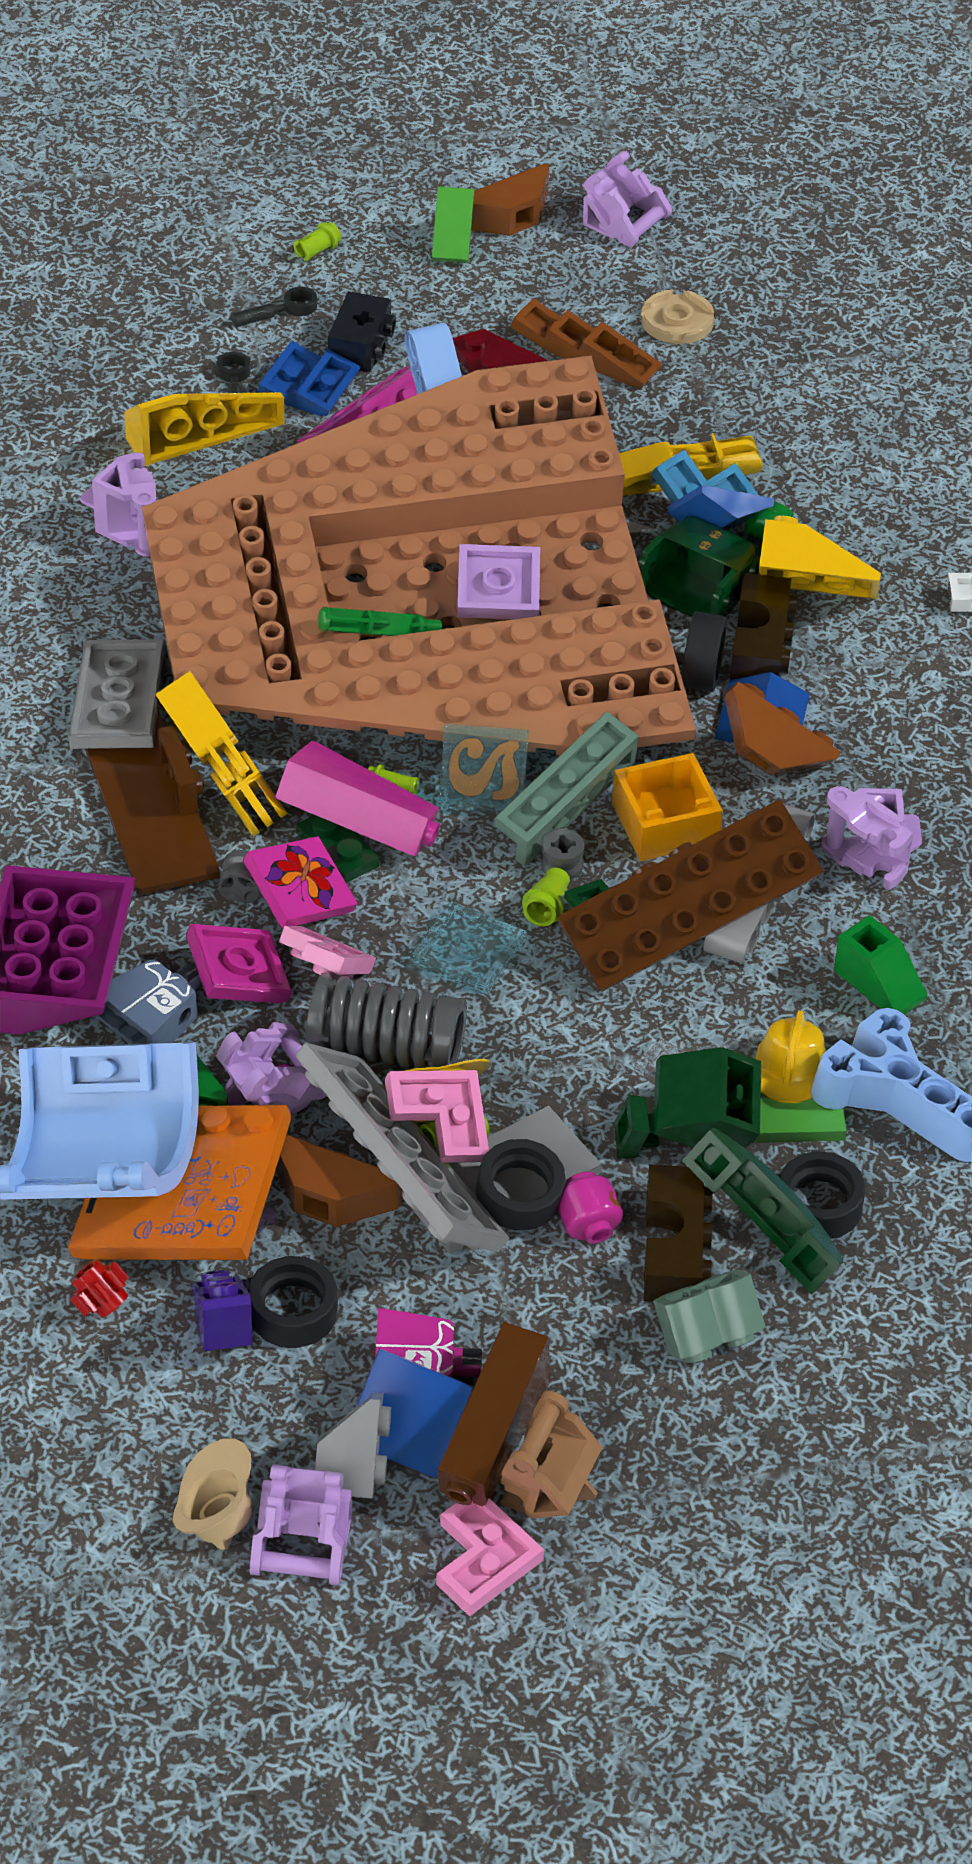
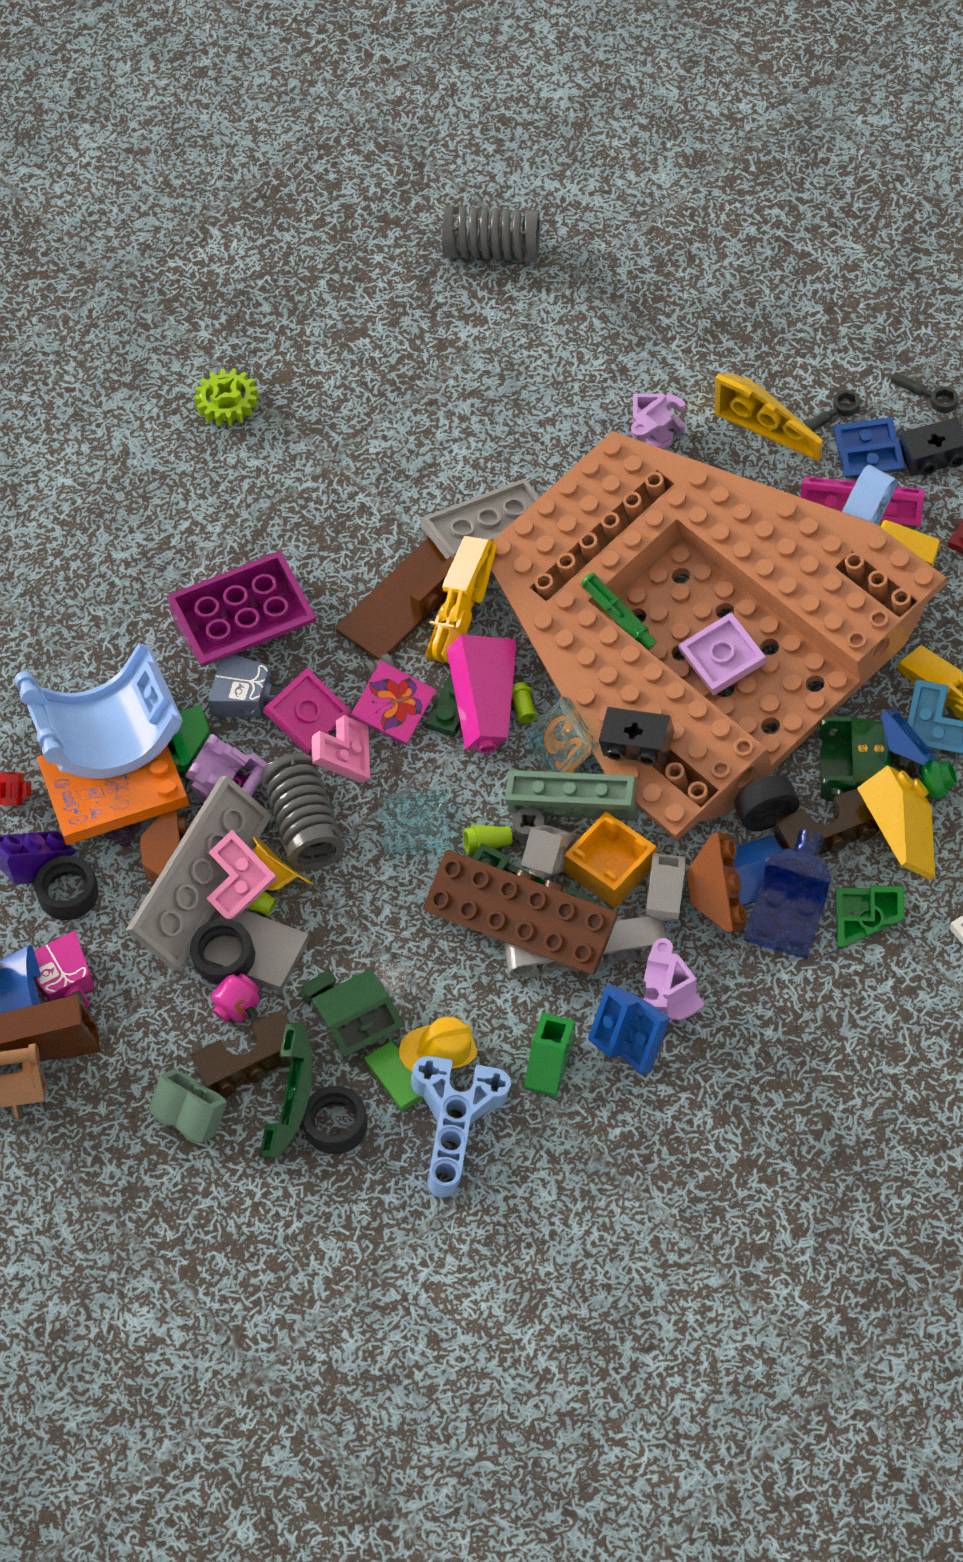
camera: 65 degrees right, 10 degrees up
(561, 682) = (636, 736): none -> black brick
(626, 839) = (546, 850): none -> light grey brick
(746, 773) = (665, 886): none -> light grey slope
(829, 692) = (791, 898): none -> clear blue plate
(890, 647) = (878, 910): none -> green slope
(904, 883) = (628, 1028): none -> blue slope

